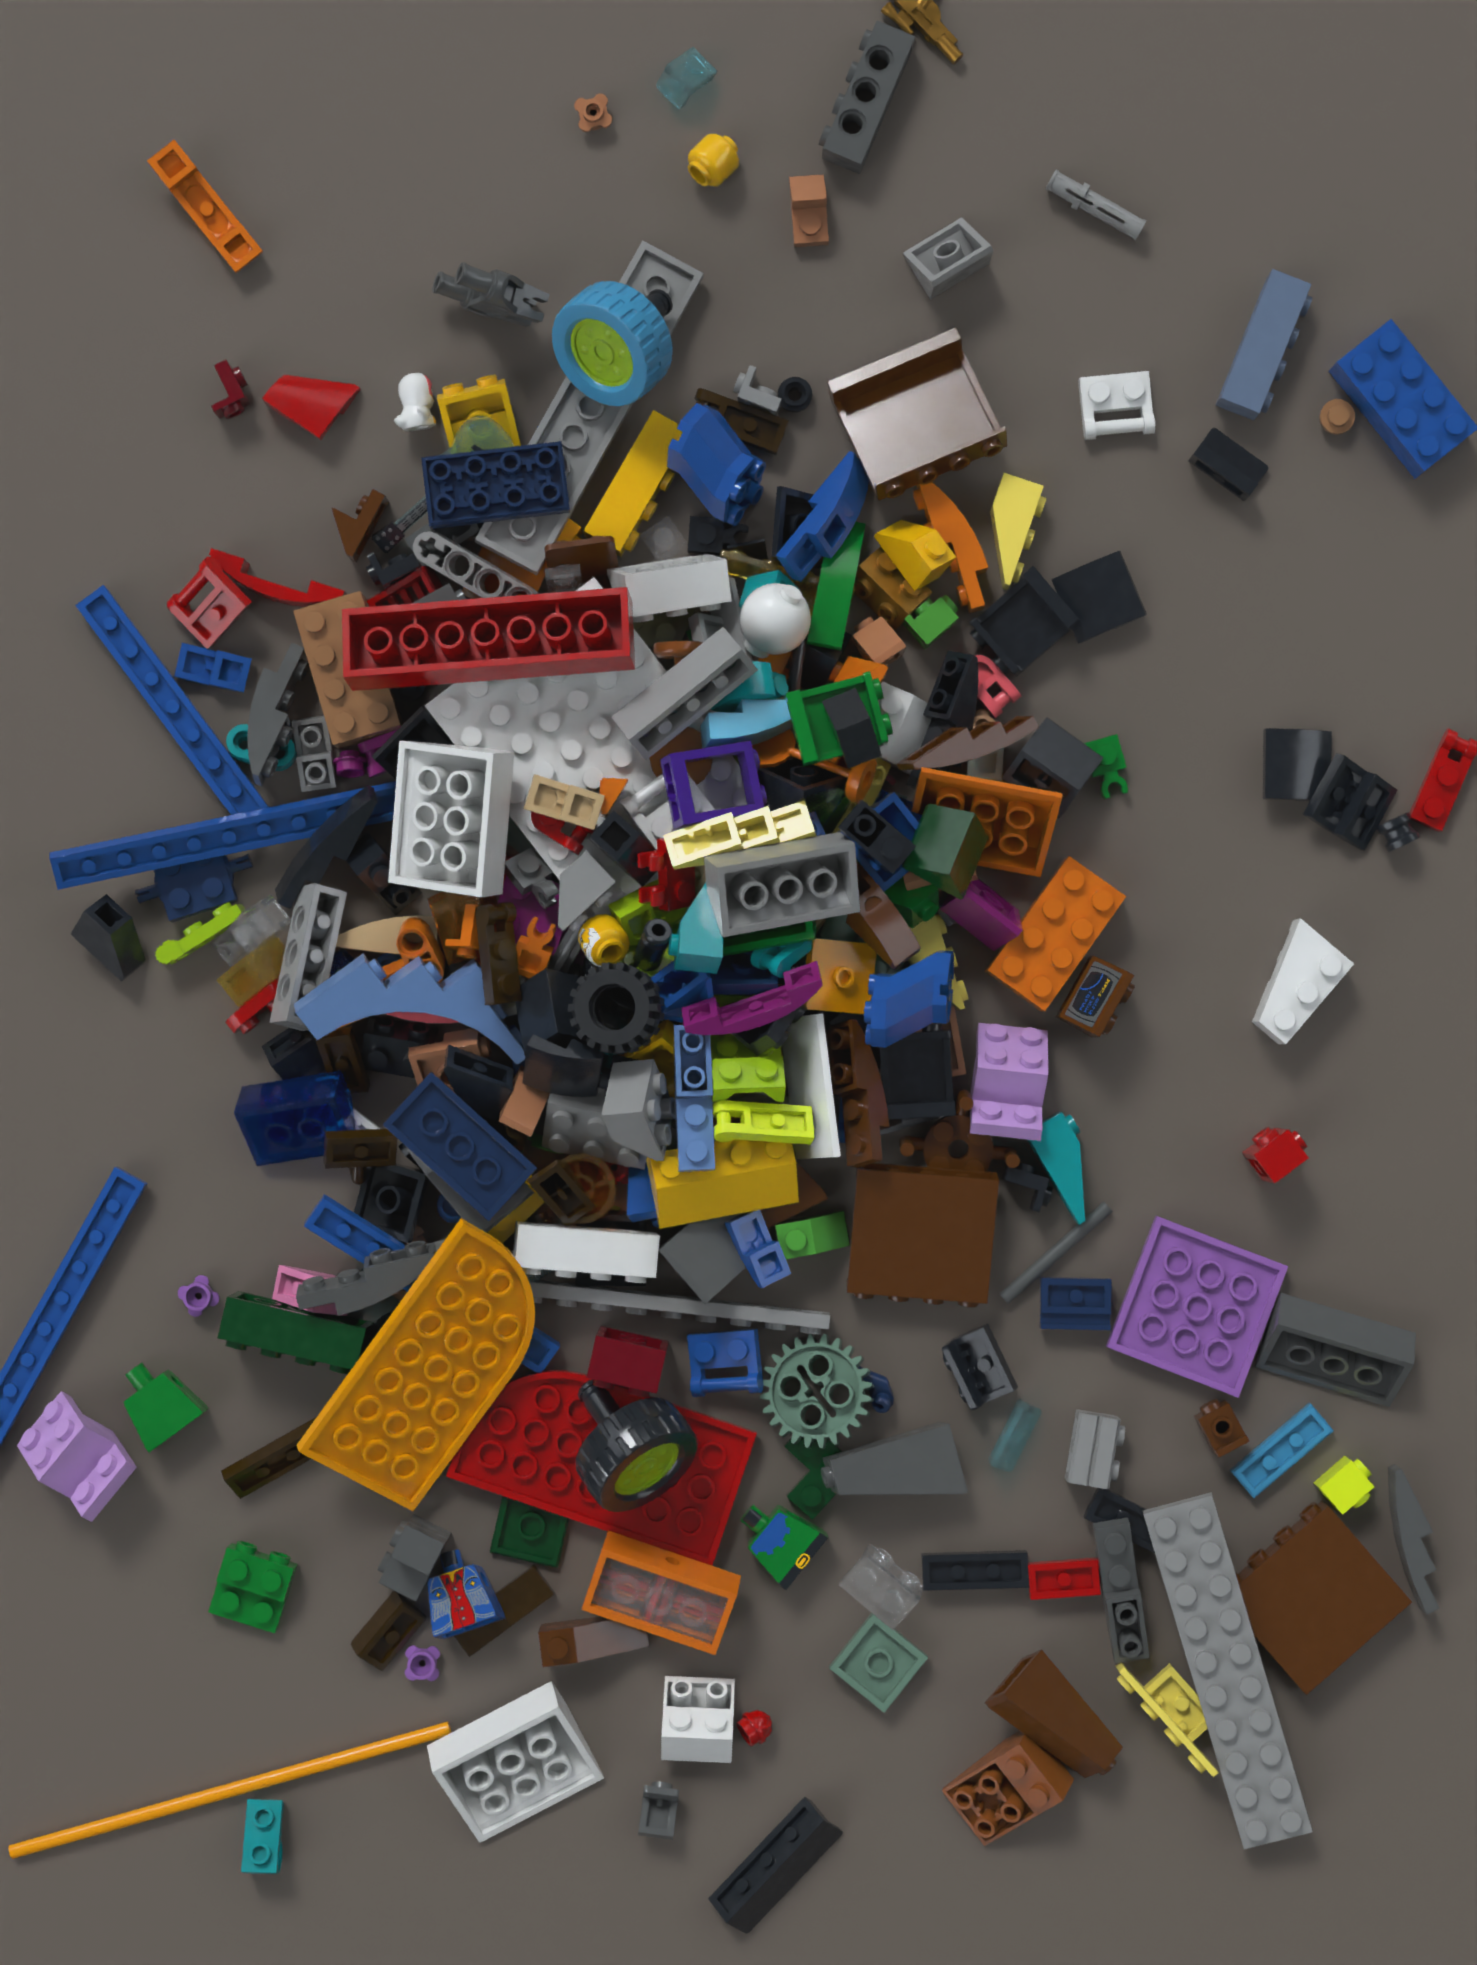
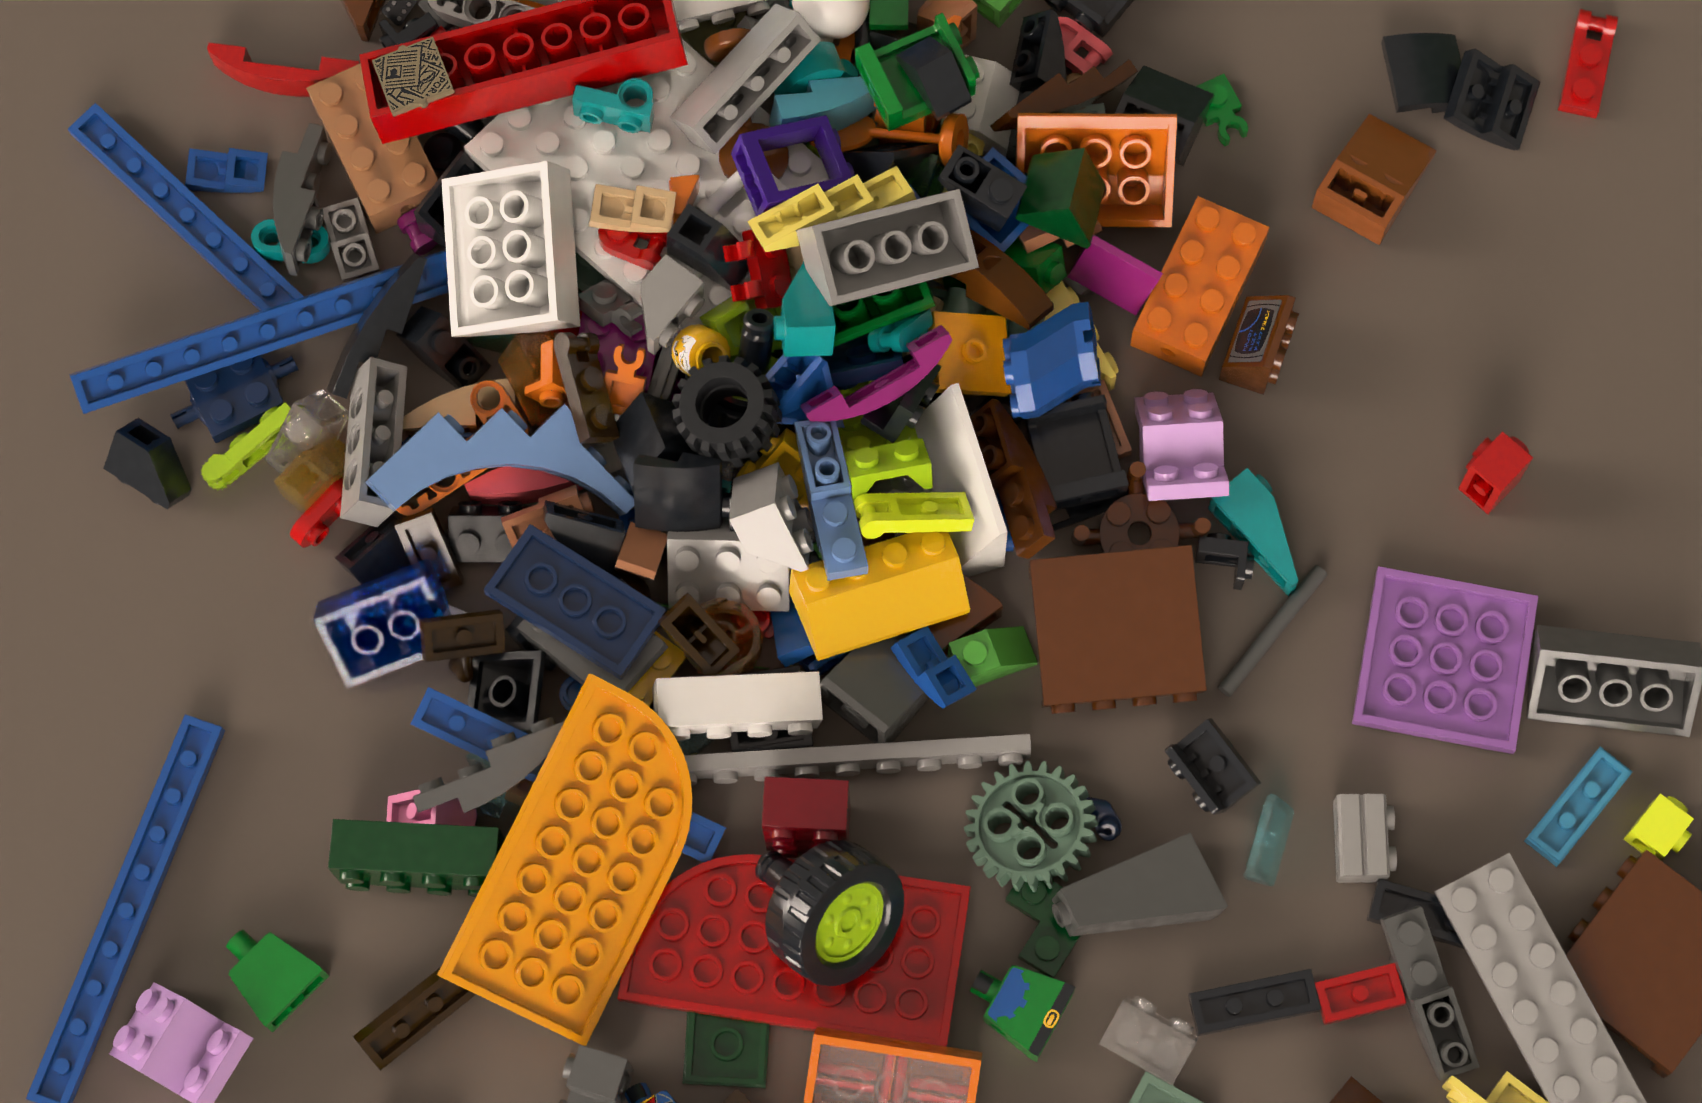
camera: 10 degrees left, 15 degrees down
(194, 1305) = (299, 834): medium lavender plate -> none
(217, 610) = (223, 106): red plate -> none
(350, 764) = (391, 243): magenta plate -> none
(386, 644) = (413, 76): none -> dark tan piece
(546, 694) = (602, 106): none -> teal plate
(724, 1350) = (915, 801): blue plate -> none
(1075, 1303) = (1306, 680): dark blue plate -> none
(1223, 1442) = (1499, 802): reddish brown brick -> none
(1230, 858) = (1372, 178): none -> dark orange slope
(1300, 982) = (1480, 289): white wedge -> none
(1398, 831) = (1551, 120): black wheel -> none

